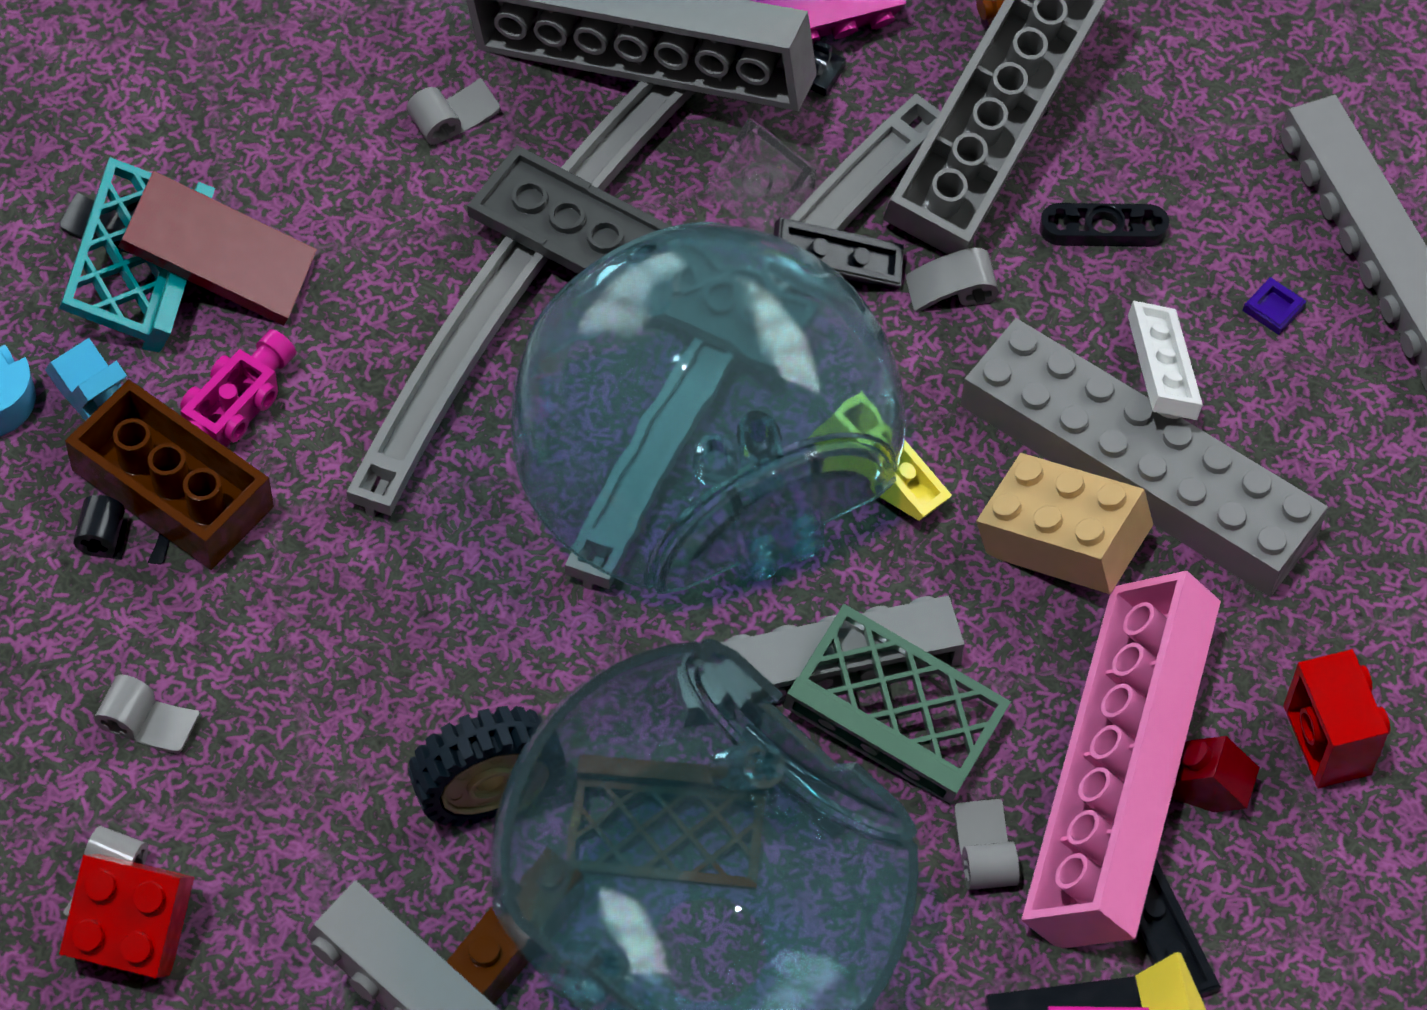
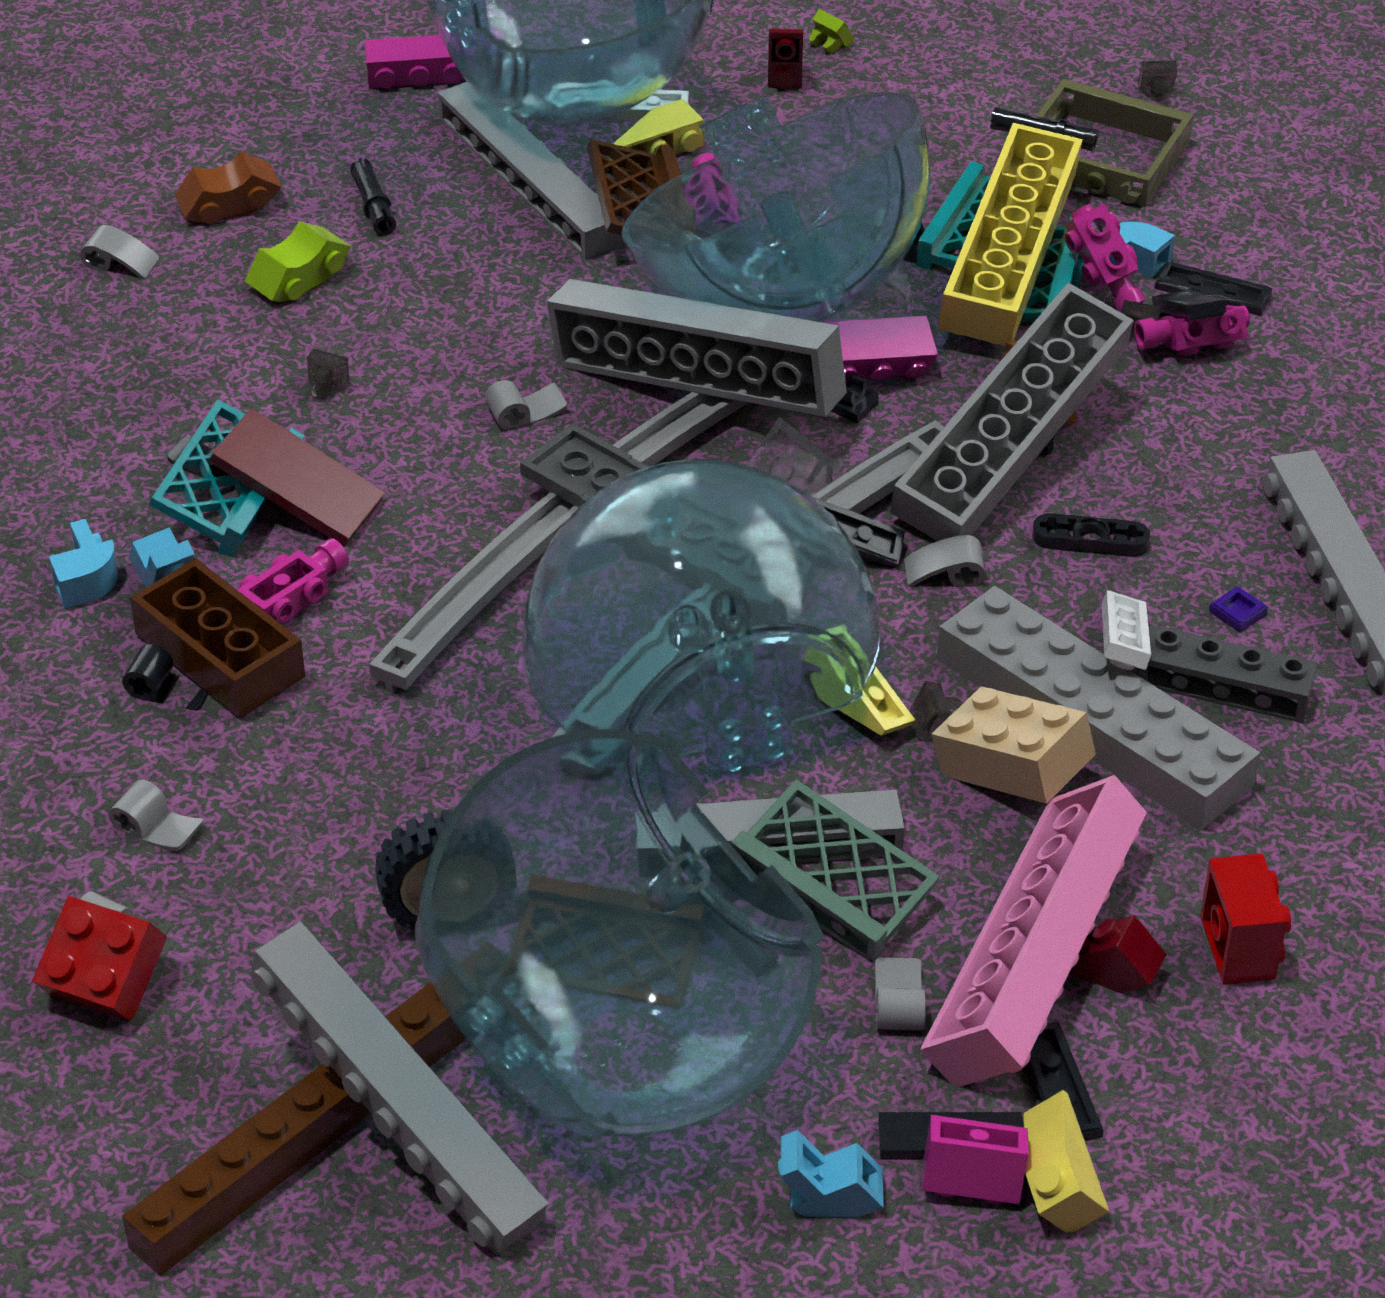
camera: 10 degrees right, 15 degrees down
(220, 92) = (327, 373): none -> clear smoke tile
(969, 481) = (931, 709): none -> clear smoke tile
(1282, 397) = (1229, 674): none -> dark grey brick

